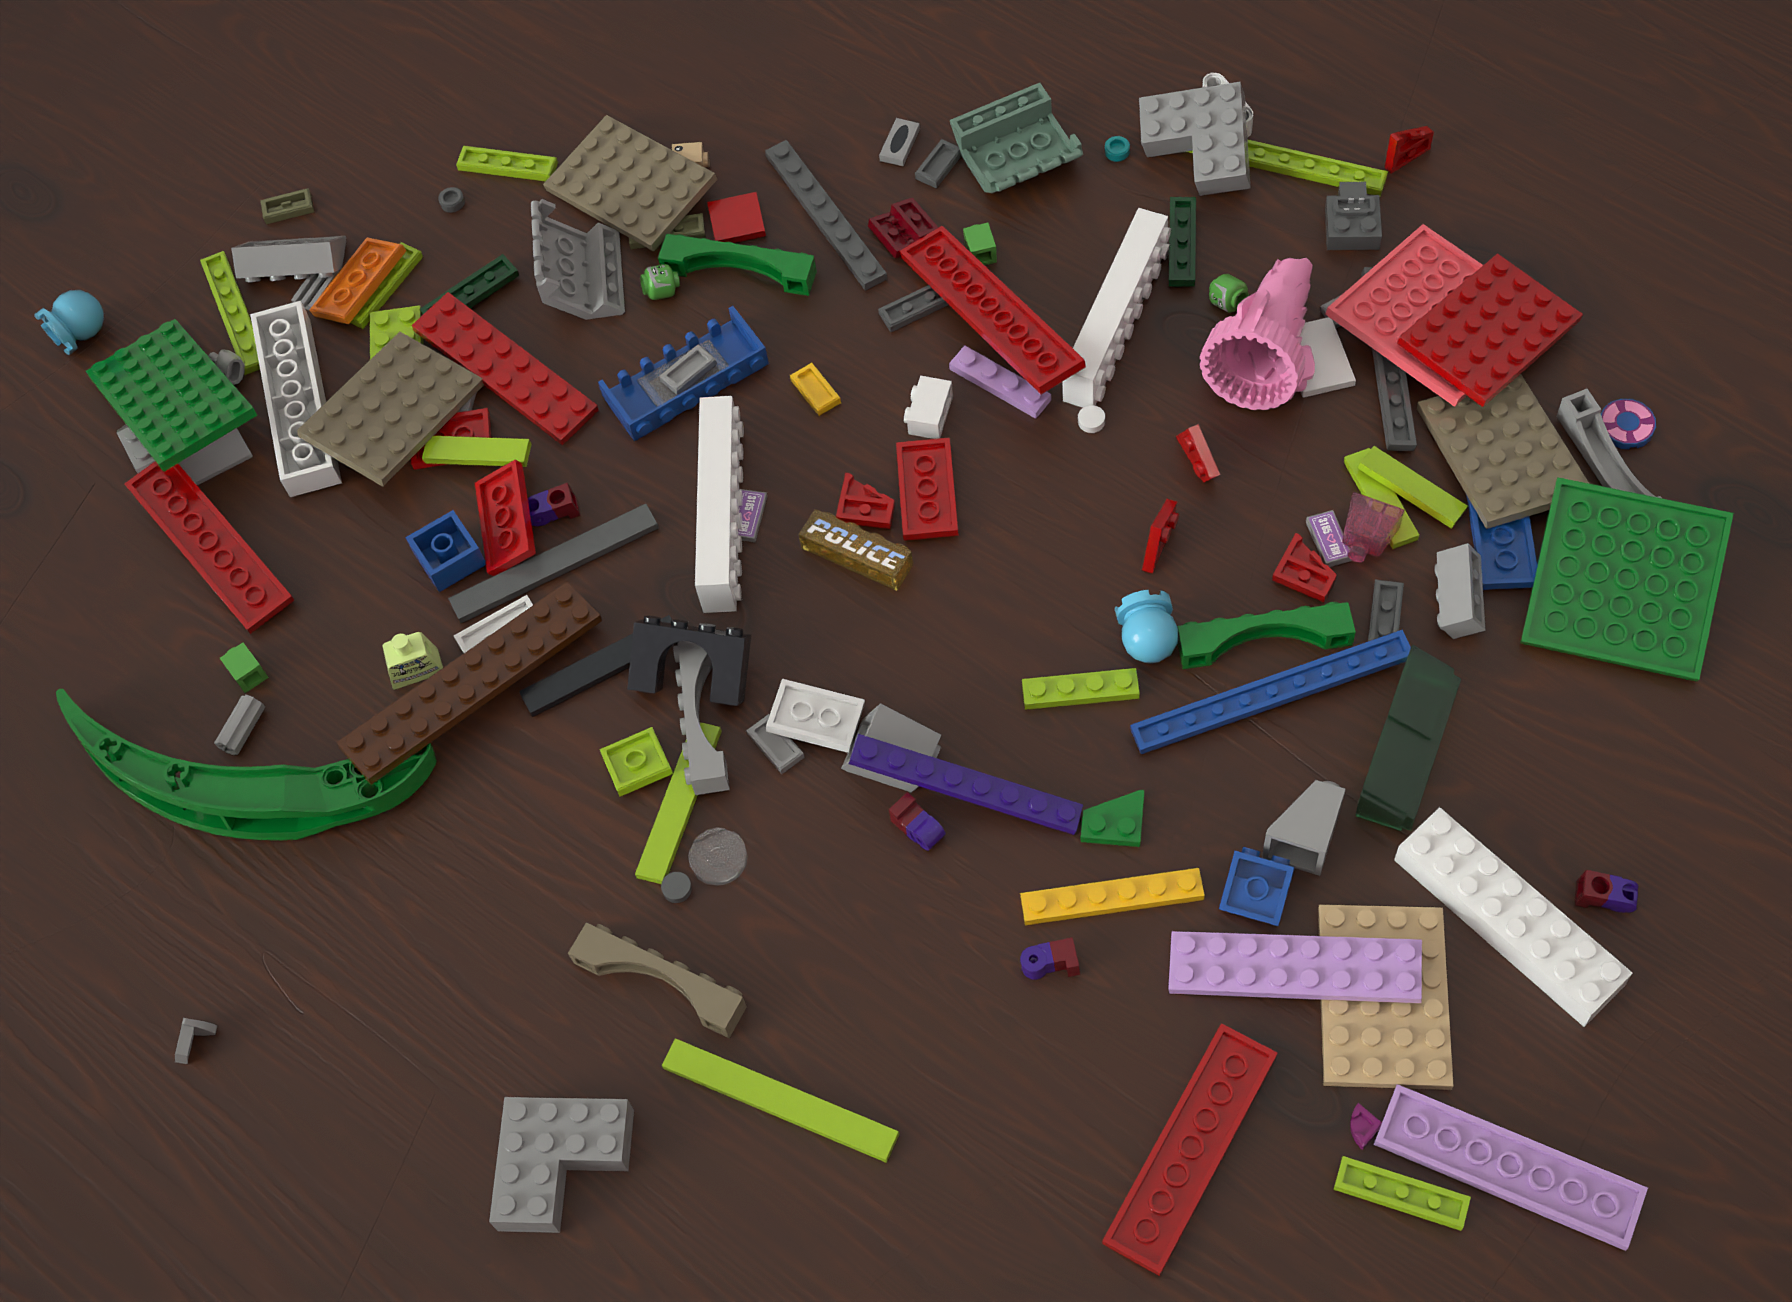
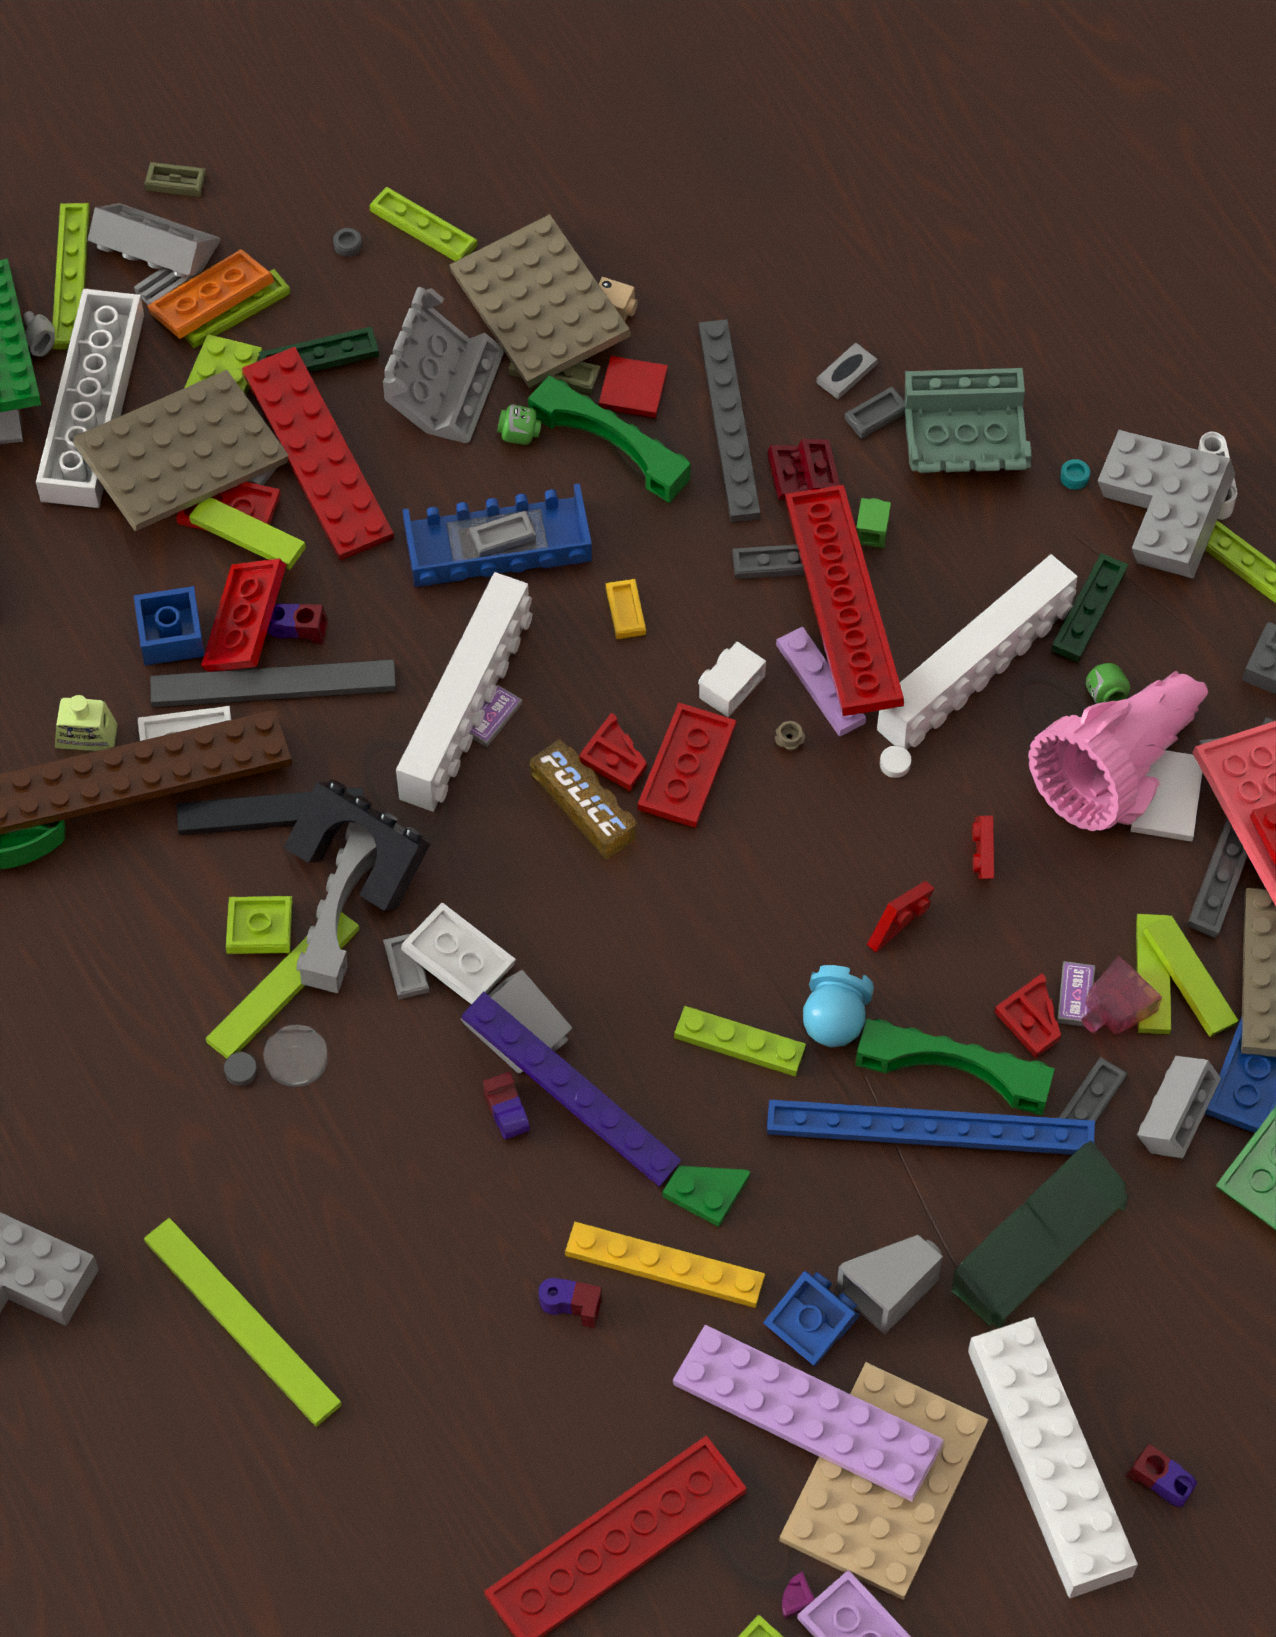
camera: 15 degrees right, 0 degrees up
(606, 954) = (140, 1106): dark tan arch -> none
(994, 427) = (789, 728): none -> dark tan plate

